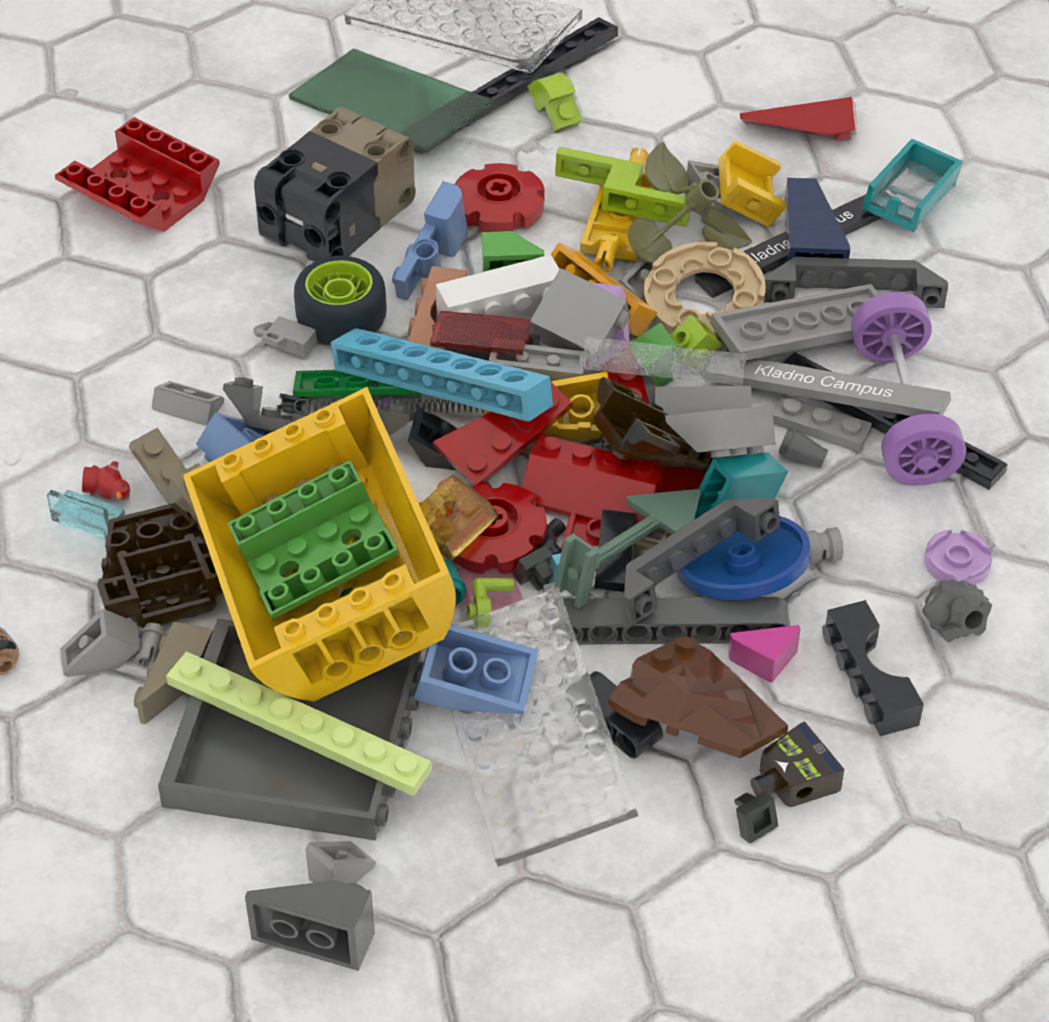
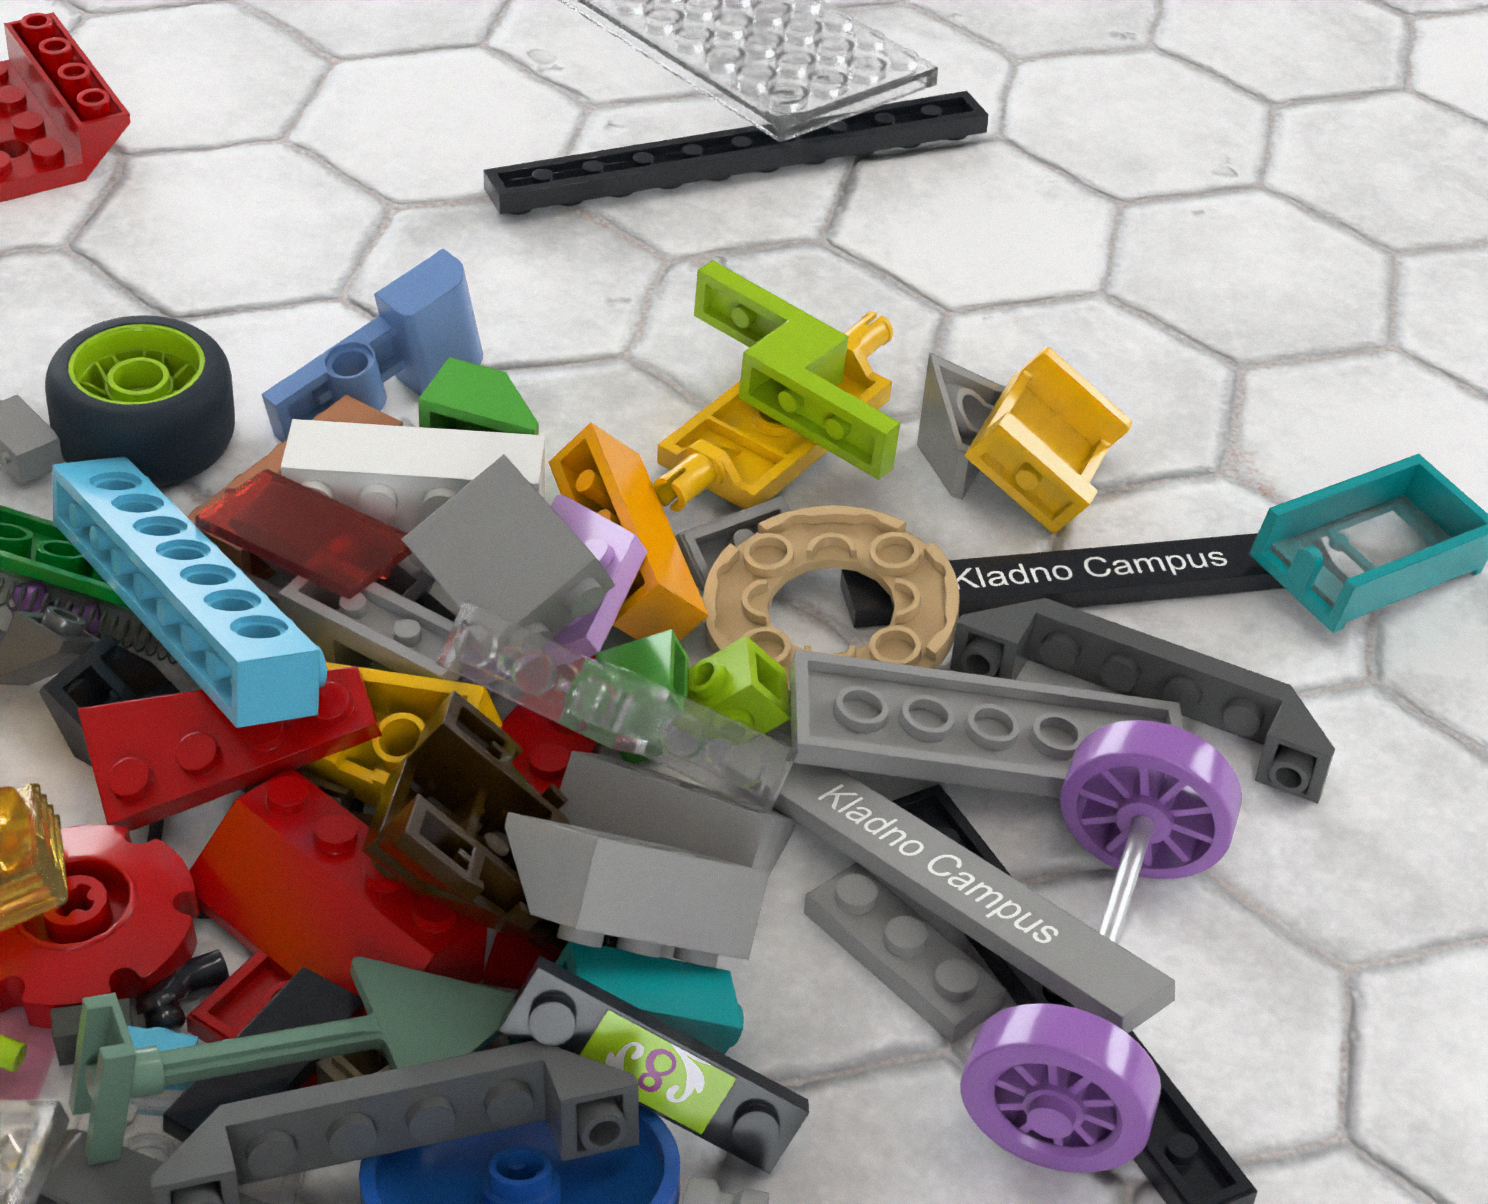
camera: 20 degrees right, 5 degrees down
(335, 186) = (273, 208): black piece -> none
(393, 97) = (512, 117): clear green piece -> none
(501, 197) = (571, 325): red piece -> none
(556, 97) = (792, 198): lime brick -> none
(667, 174) = (884, 365): olive plant -> none
(794, 498) = (673, 1070): none -> black plate
(802, 449) = (819, 988): dark grey cone -> none
(811, 222) = (1115, 545): dark blue slope -> none
(822, 118) = (1281, 372): red wedge -> none

